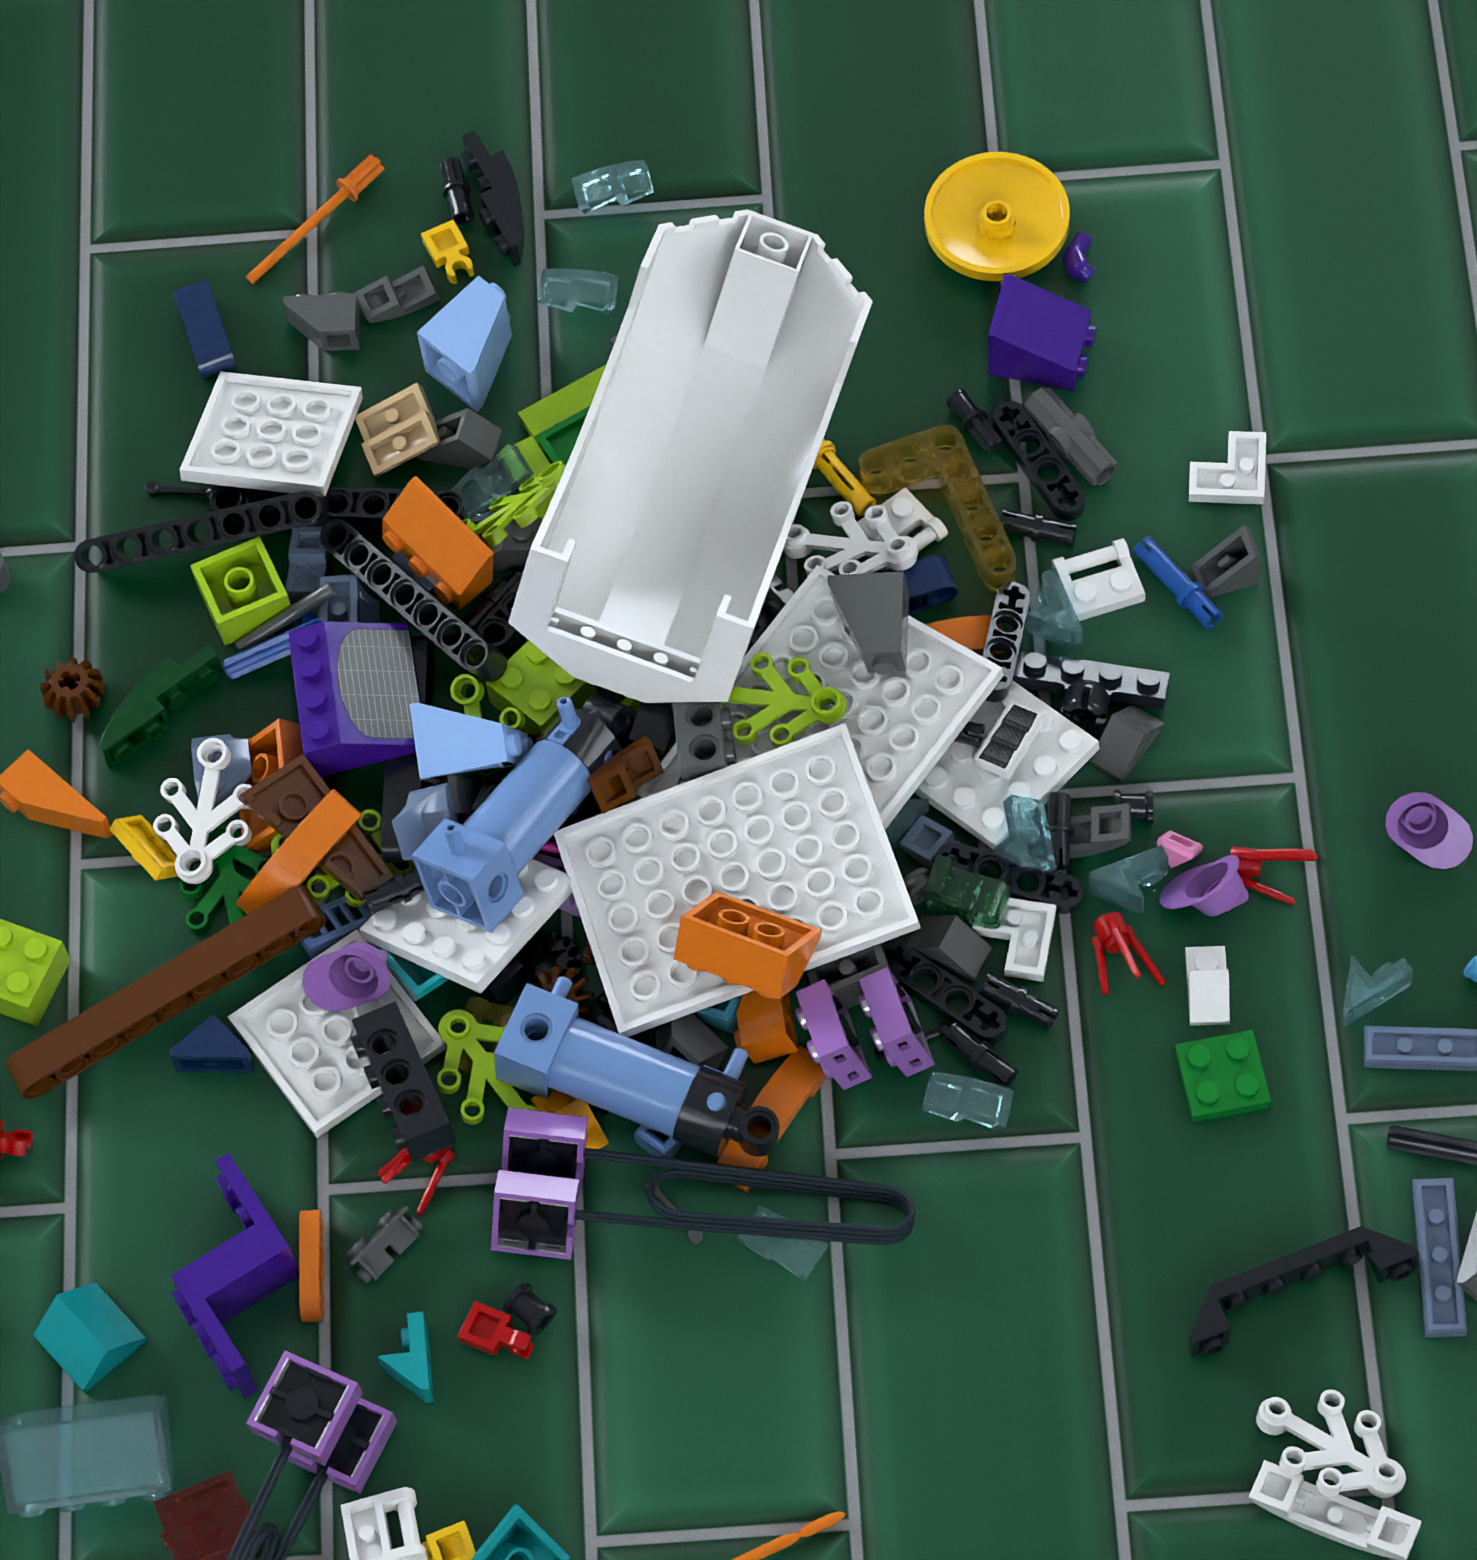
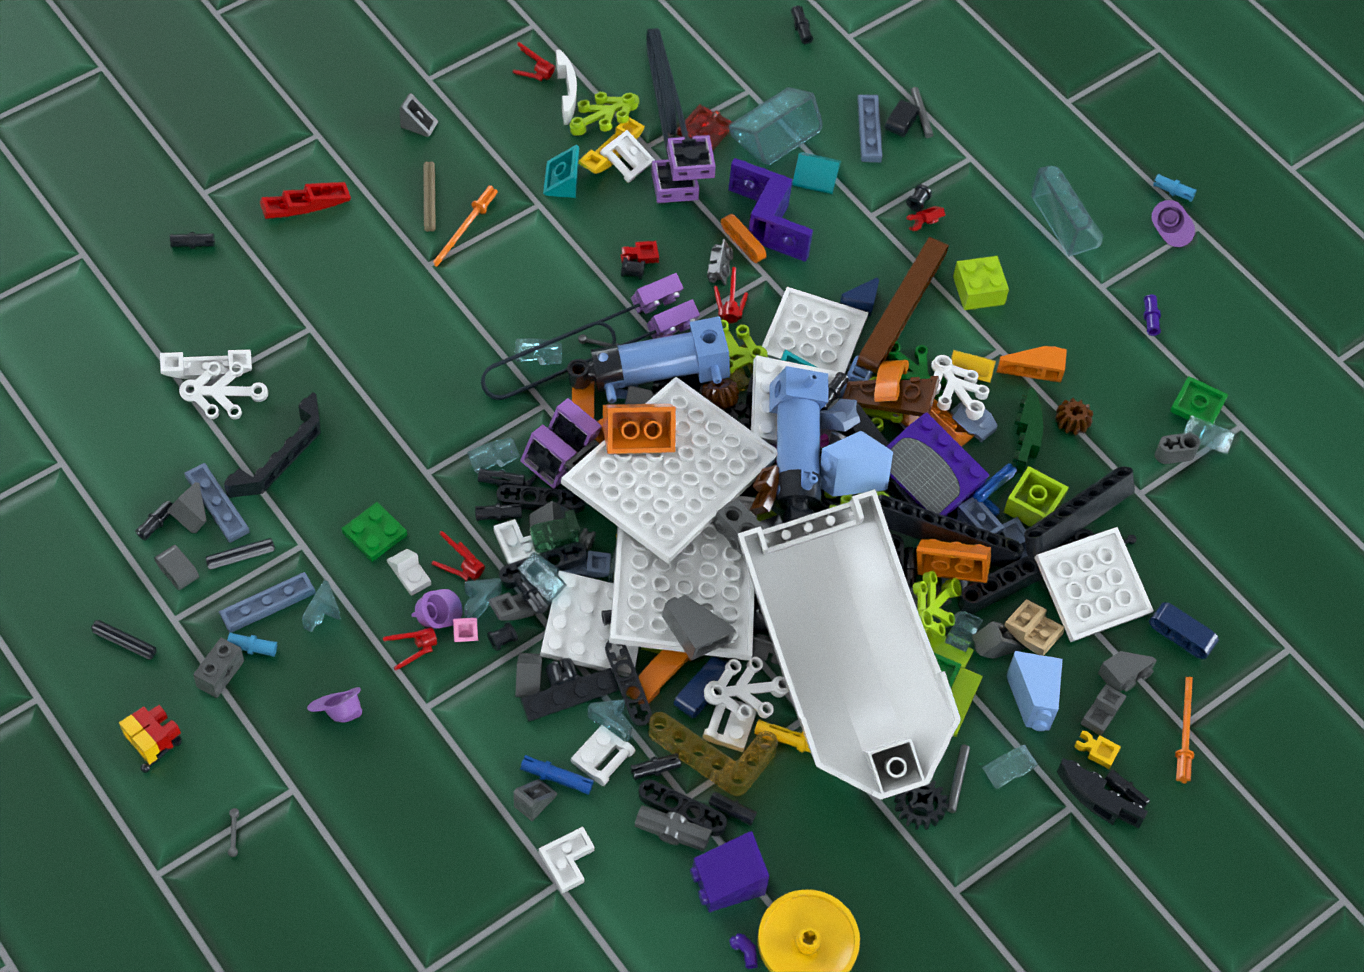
camera: 135 degrees right, 5 degrees down
(286, 617) = (1001, 503): dark grey bar -> none
(347, 977) = (823, 350): medium lavender piece -> none
(384, 1032) = (764, 321): black brick -> none
(414, 1365) = (667, 224): teal slope -> none
(614, 182) = (1044, 842): clear light blue slope -> none
(783, 700) = (714, 568): lime plant -> none
(1009, 739) = (586, 623): tile -> none

